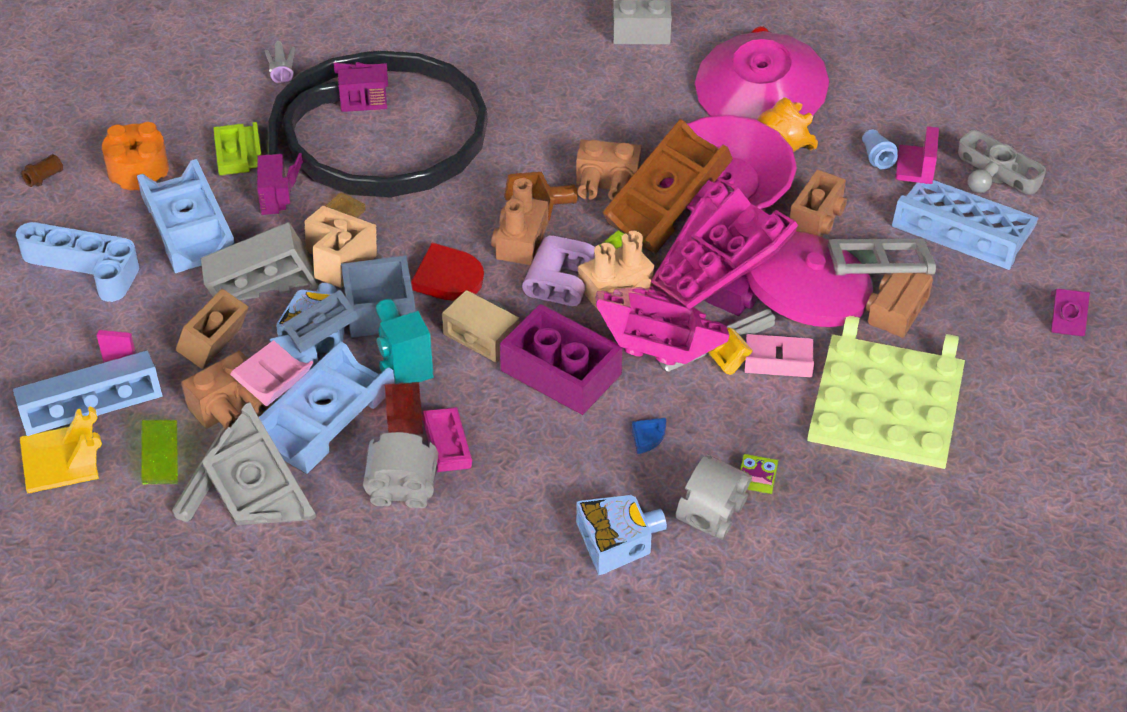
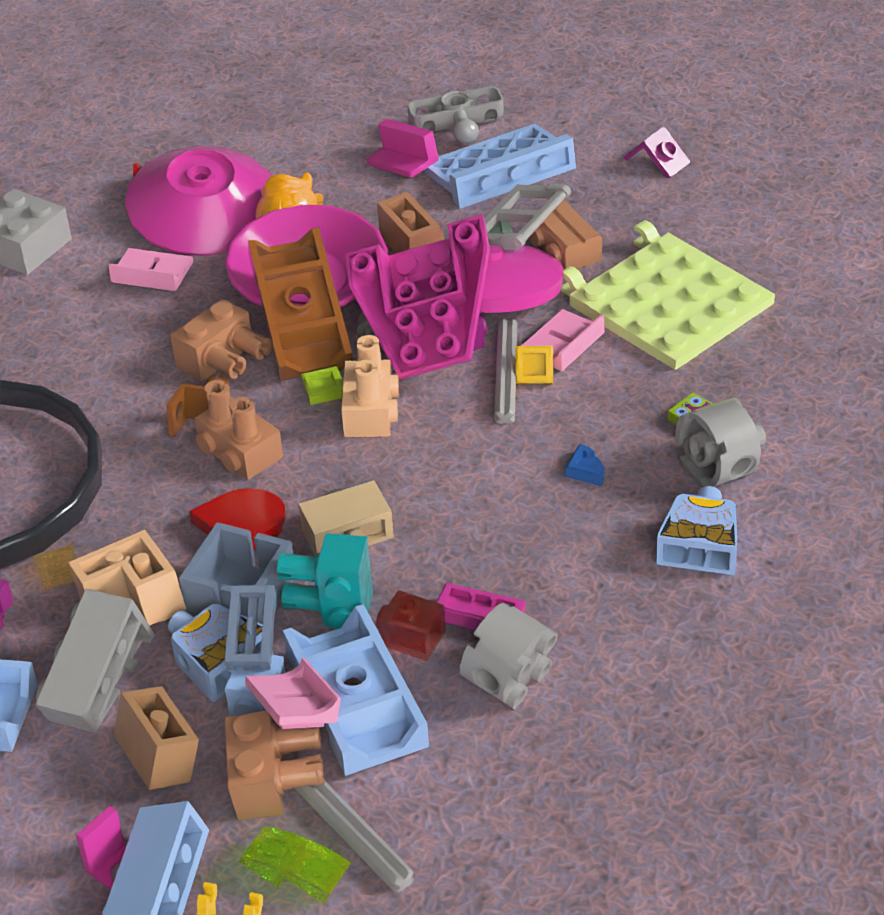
camera: 55 degrees left, 5 degrees down
(254, 475) = (408, 783): light grey wing -> none
(546, 273) = (321, 453): lavender connector -> none
(561, 359) = (452, 476): magenta brick -> none
(658, 325) = (487, 383): dark pink wedge -> none
(666, 98) = (137, 264): none -> bright pink piece
(880, 150) = (364, 170): light blue cone -> none

